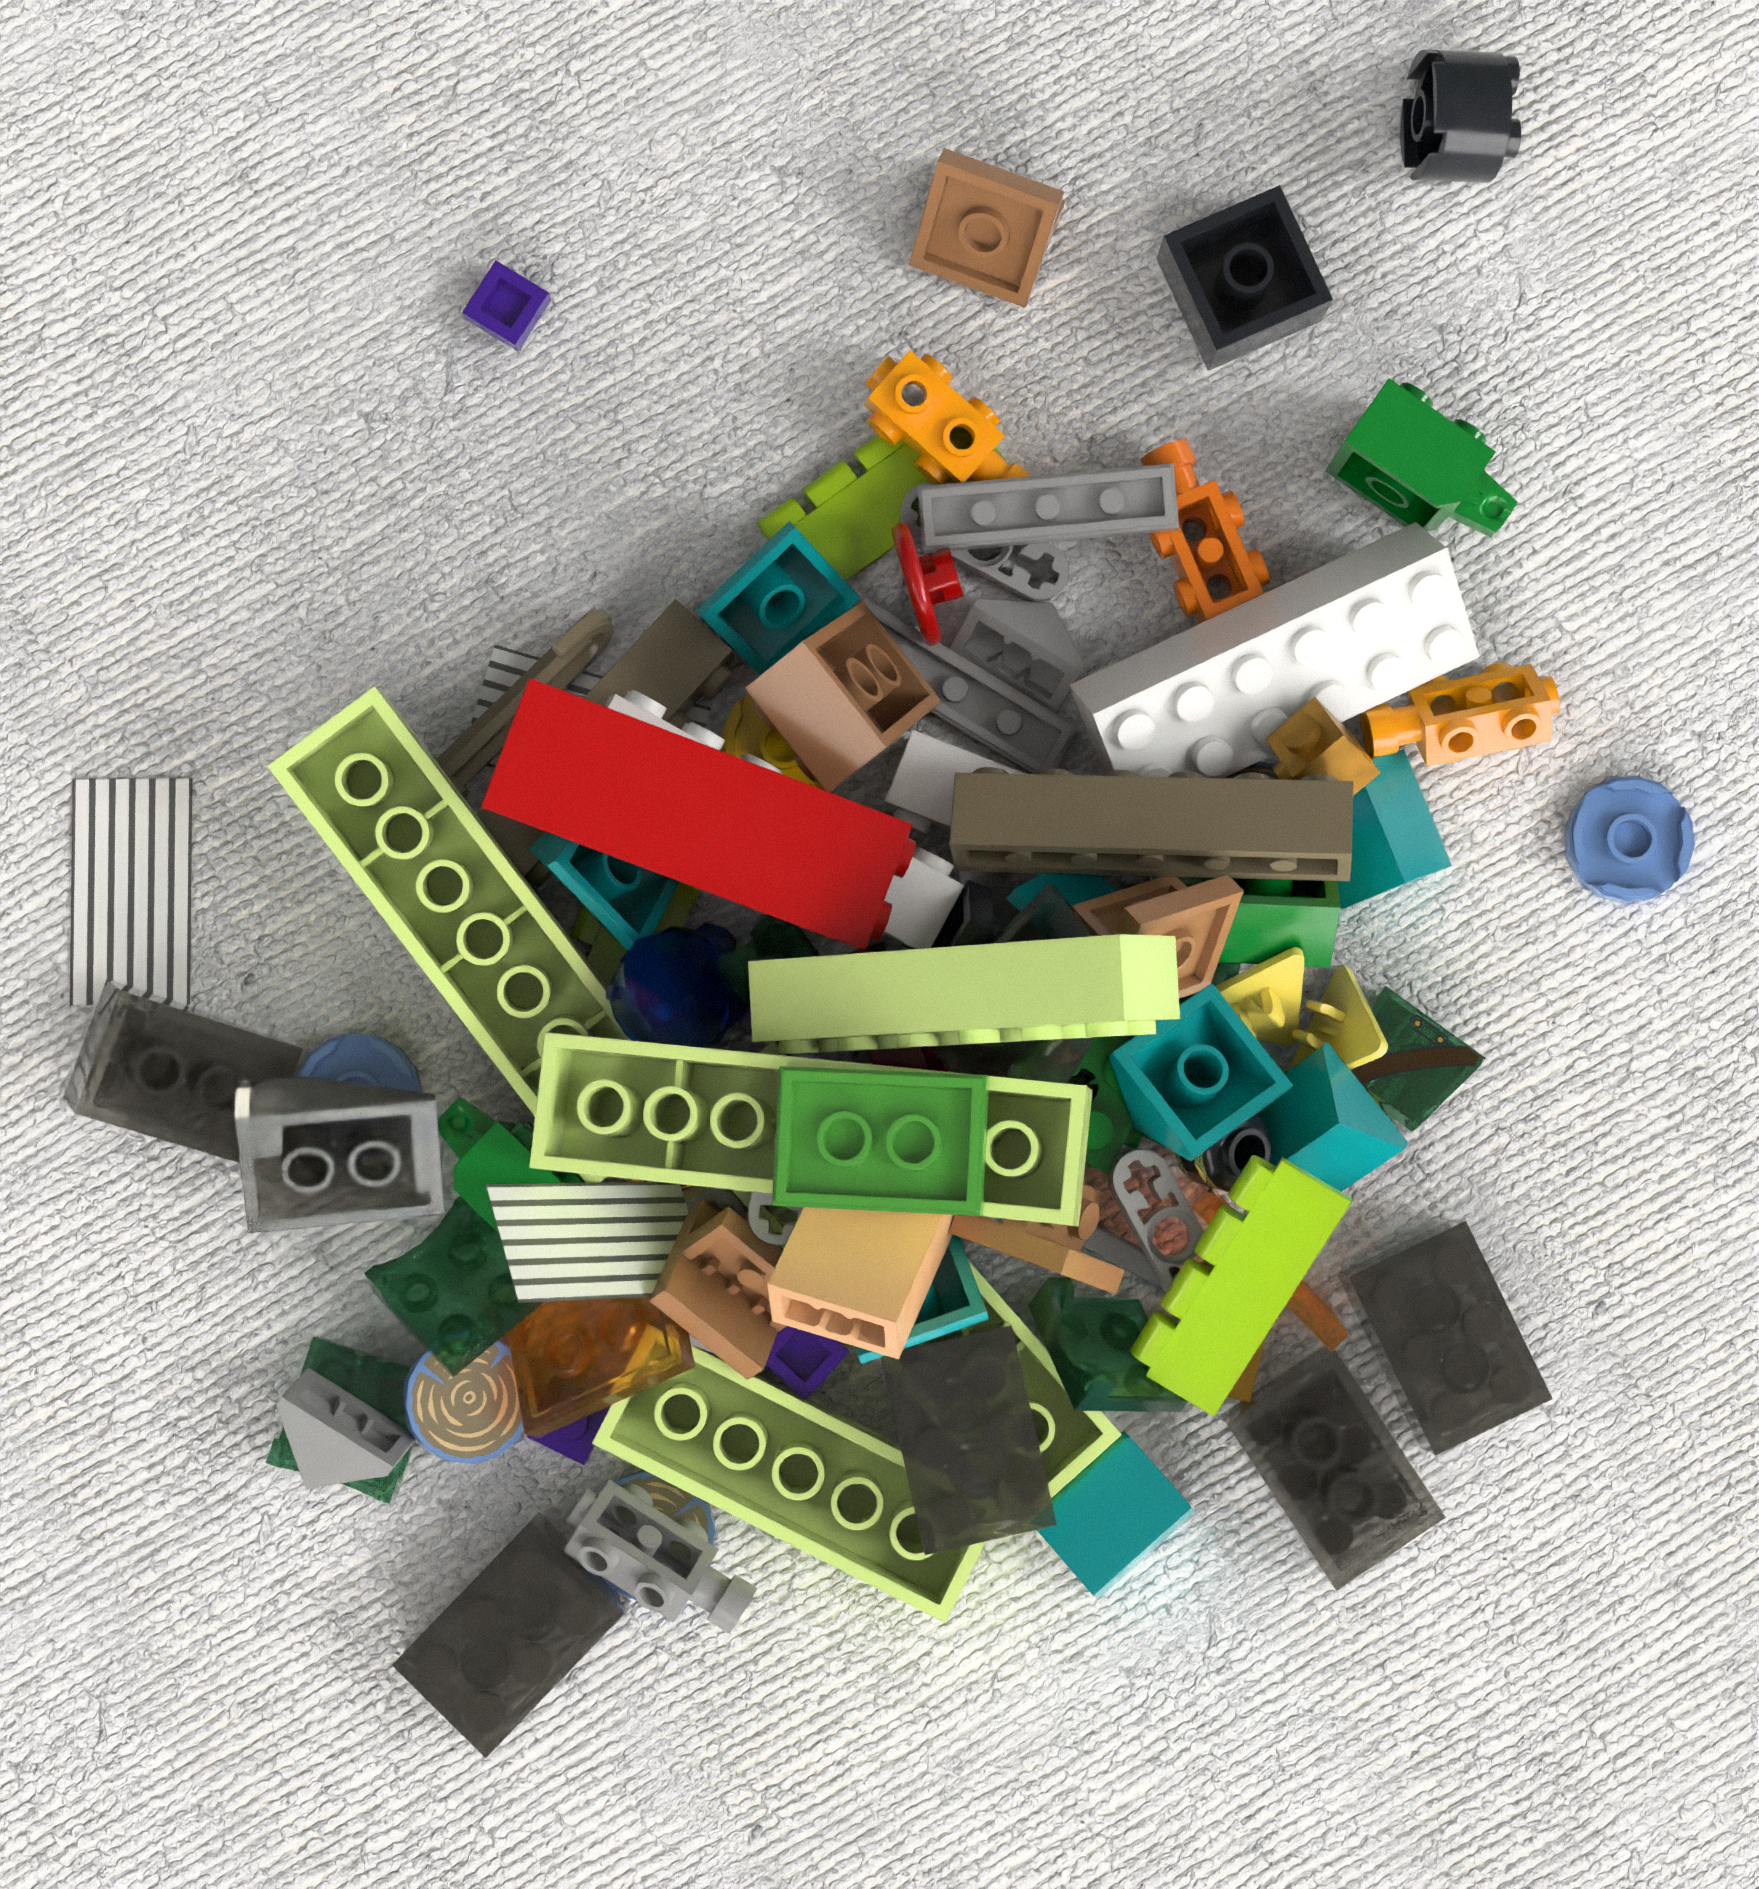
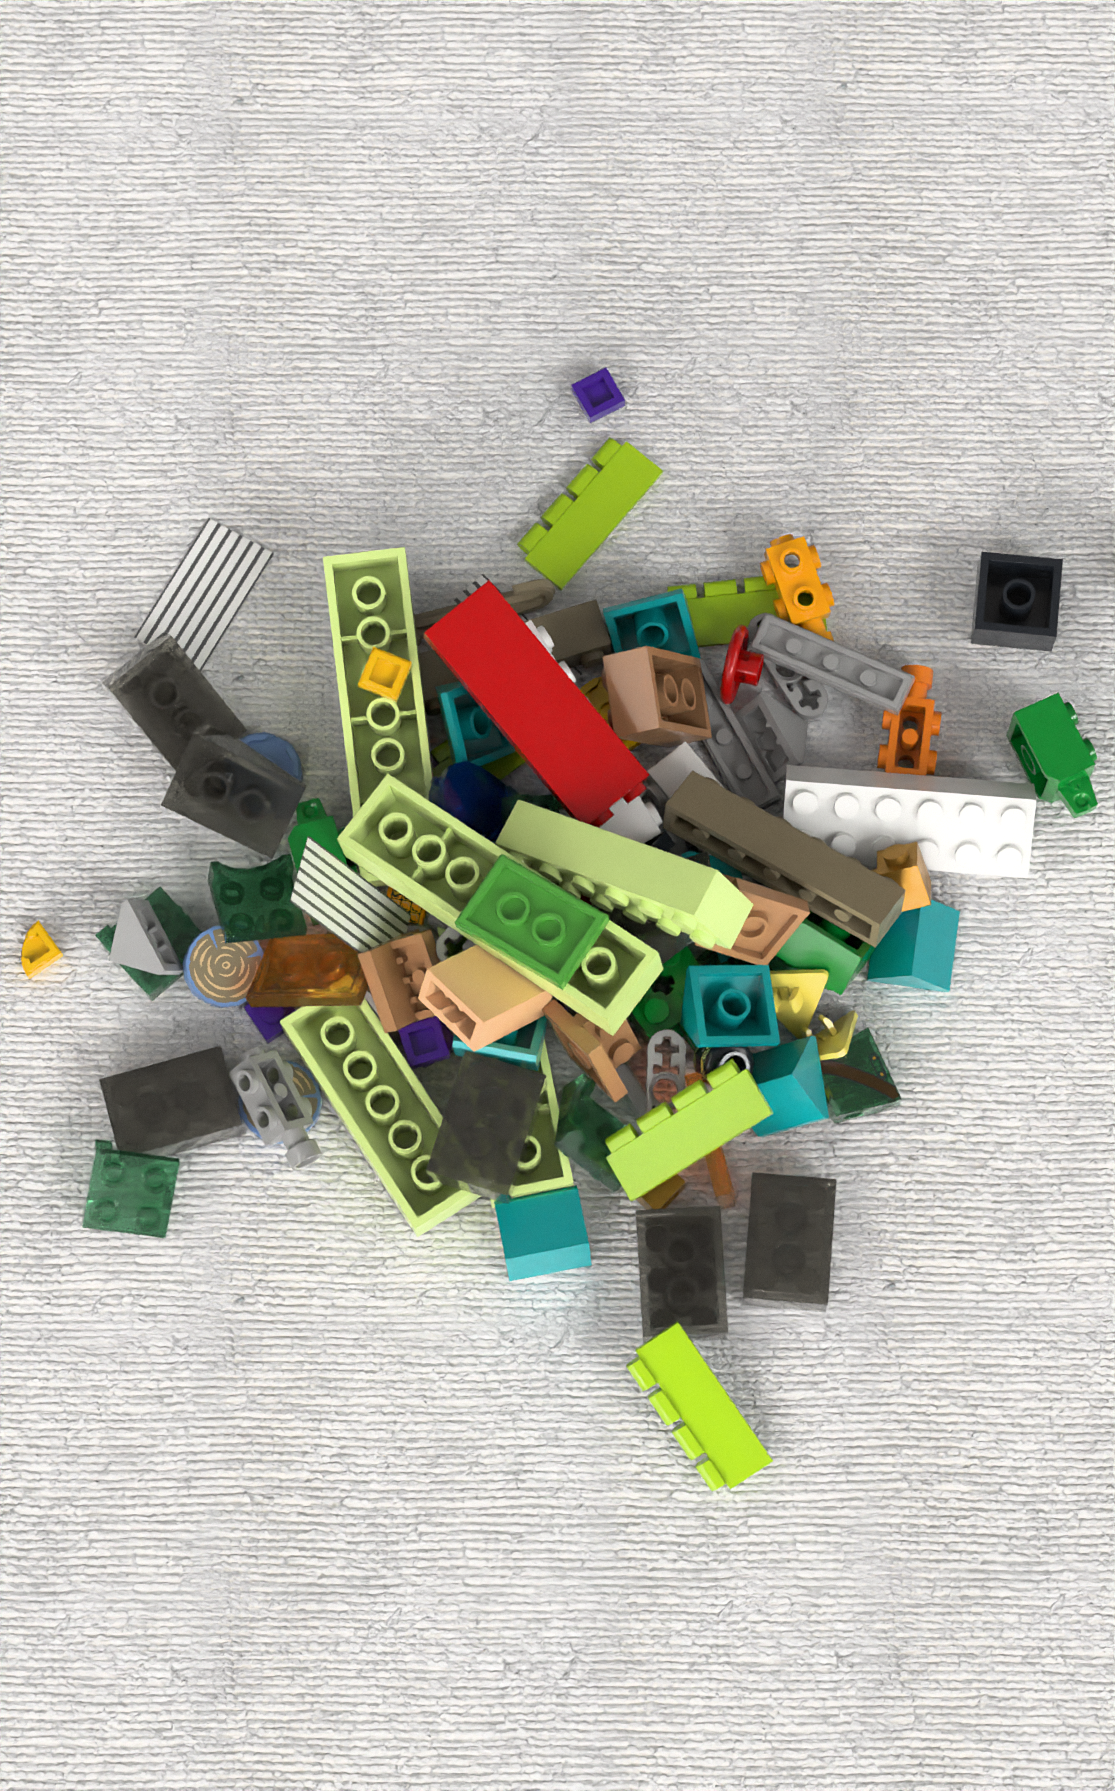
camera: 35 degrees right, 10 degrees down
(199, 1517) = (38, 950): none -> yellow tile
(454, 884) = (385, 674): none -> yellow tile
(524, 1788) = (129, 1191): none -> clear green piece
(598, 480) = (599, 508): none -> lime windscreen
(986, 227) = (888, 496): medium nougat bracket -> none
(1456, 1635) = (709, 1414): none -> windscreen
(1469, 718) = (1004, 914): light orange brick -> none
(1629, 839) = (1060, 1033): medium blue tile -> none

